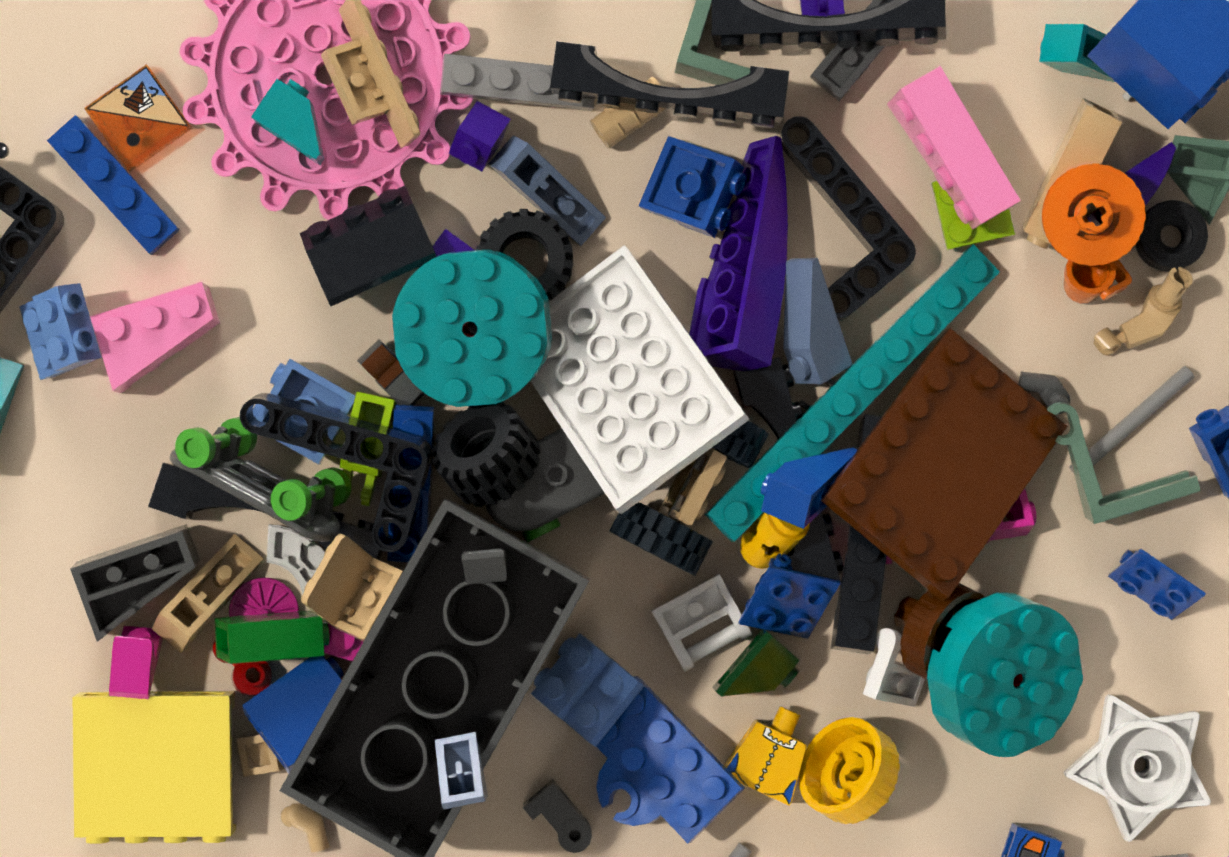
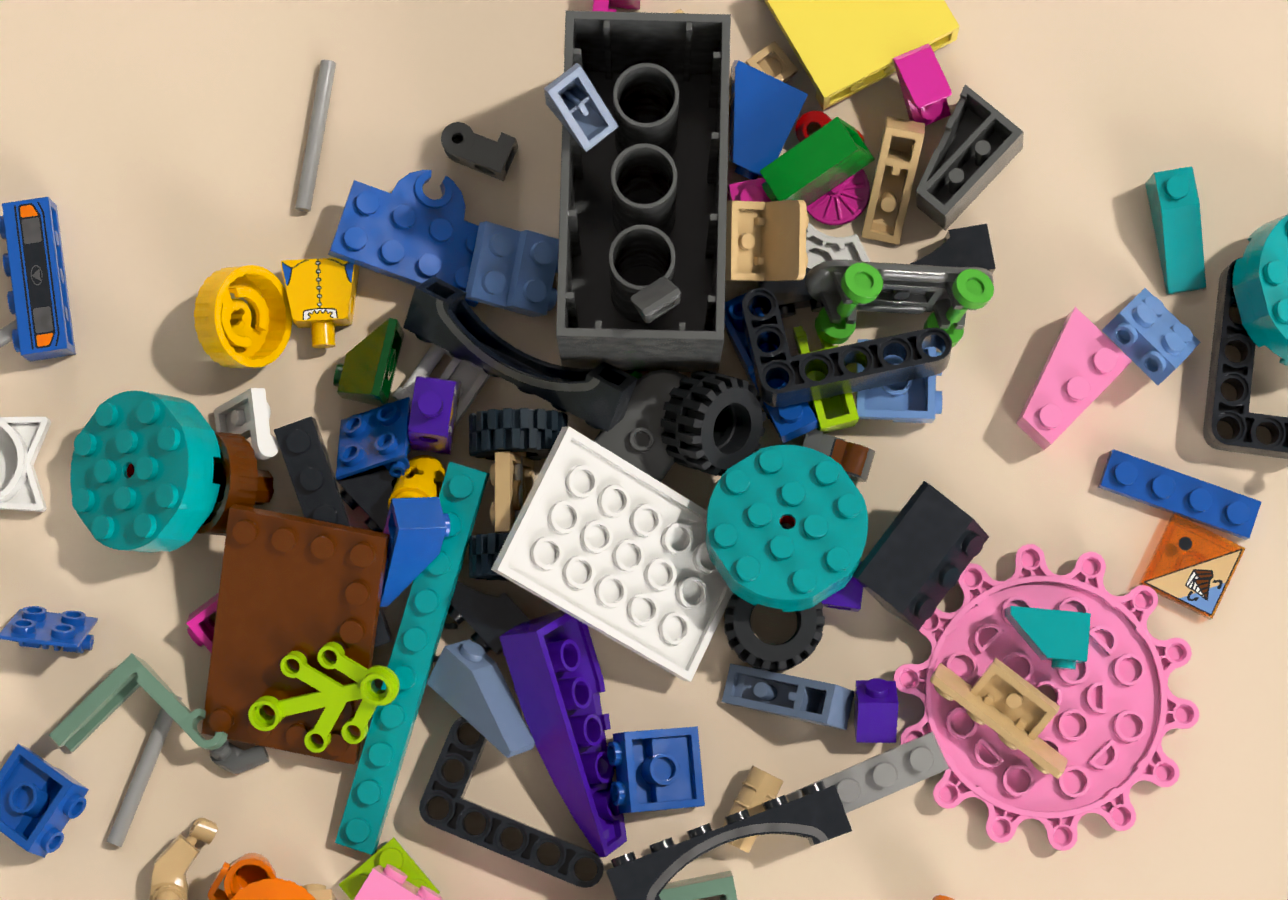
camera: 155 degrees right, 5 degrees down
(670, 670) = (444, 318): none -> black arch
(724, 595) = (433, 414): none -> dark purple torso
(942, 392) = (329, 695): none -> lime plant

